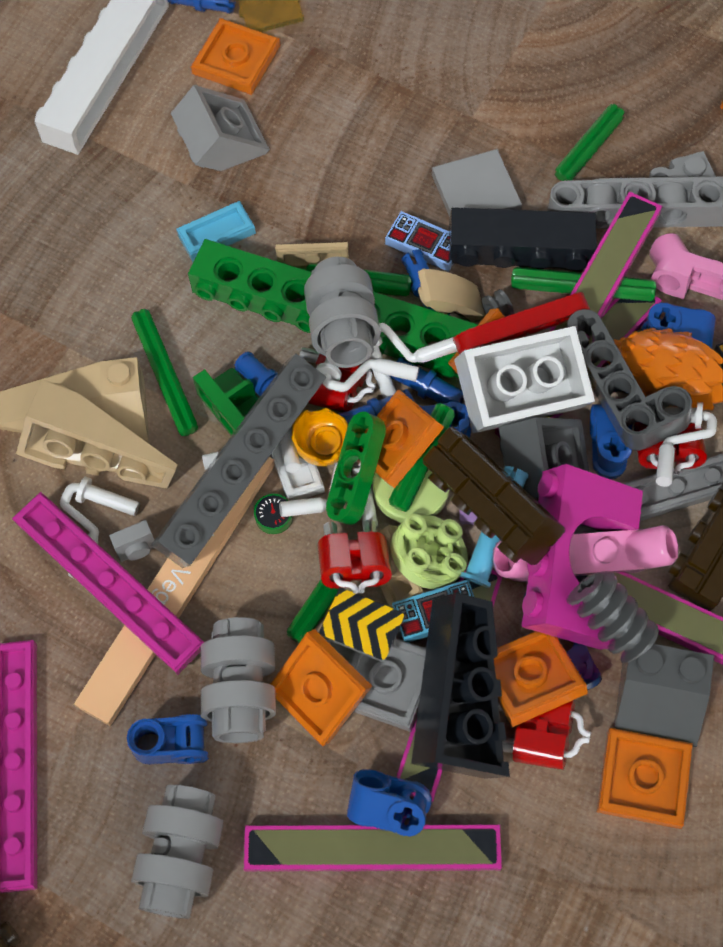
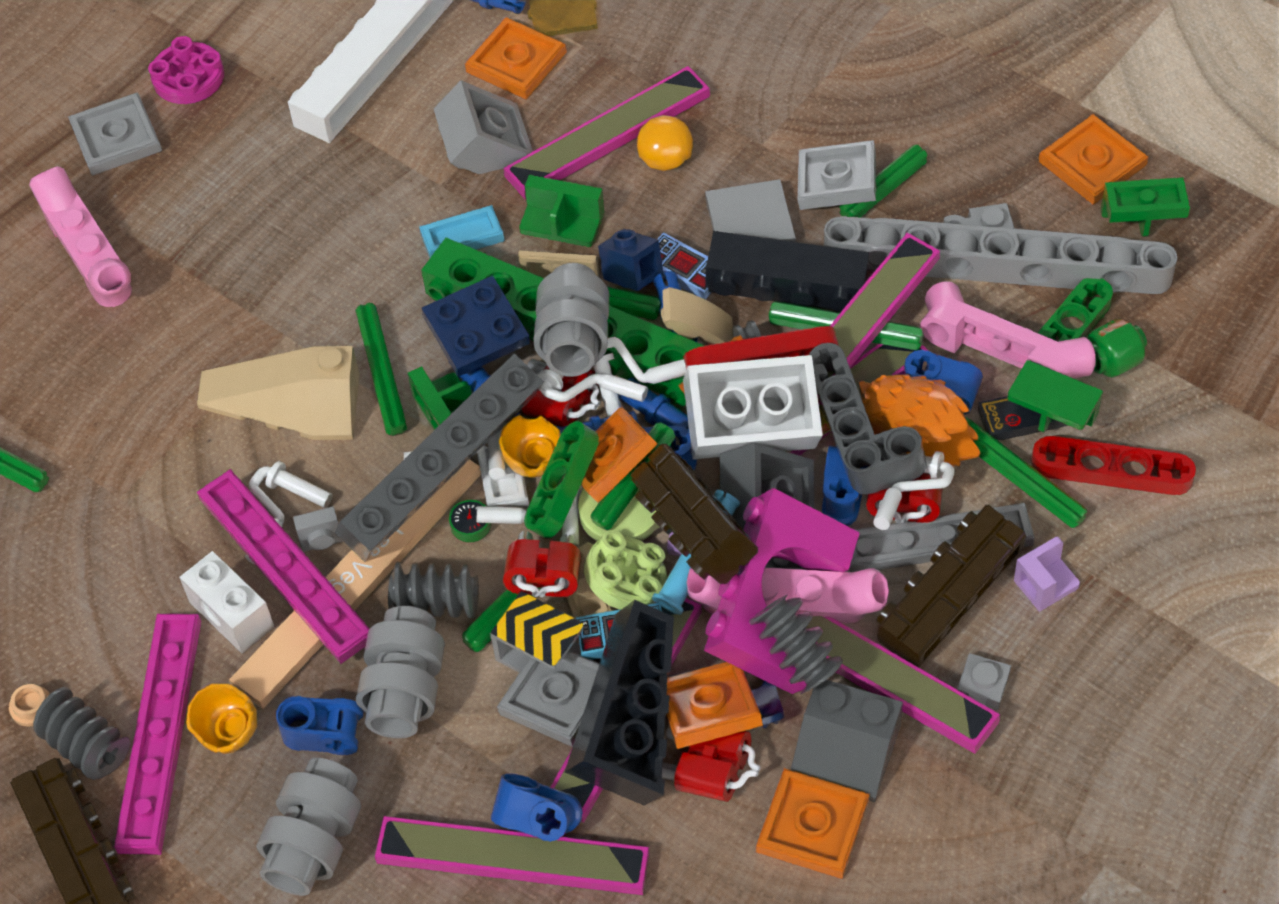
camera: 10 degrees right, 10 degrees down
(59, 626) = (227, 602): none -> white brick
(72, 430) = (275, 414): tan wedge -> none
(74, 747) = (222, 718): none -> light orange hair
(248, 324) = (475, 325): none -> dark blue plate
(252, 591) = (434, 590): none -> dark grey piece
(305, 200) = (562, 211): none -> green panel
(319, 687) = (483, 689): orange tile -> none
(330, 120) = (608, 130): none -> tile
(378, 242) = (630, 259): none -> dark blue brick
(386, 124) = (664, 143): none -> light orange hair
(548, 140) = (837, 175): none -> light grey tile

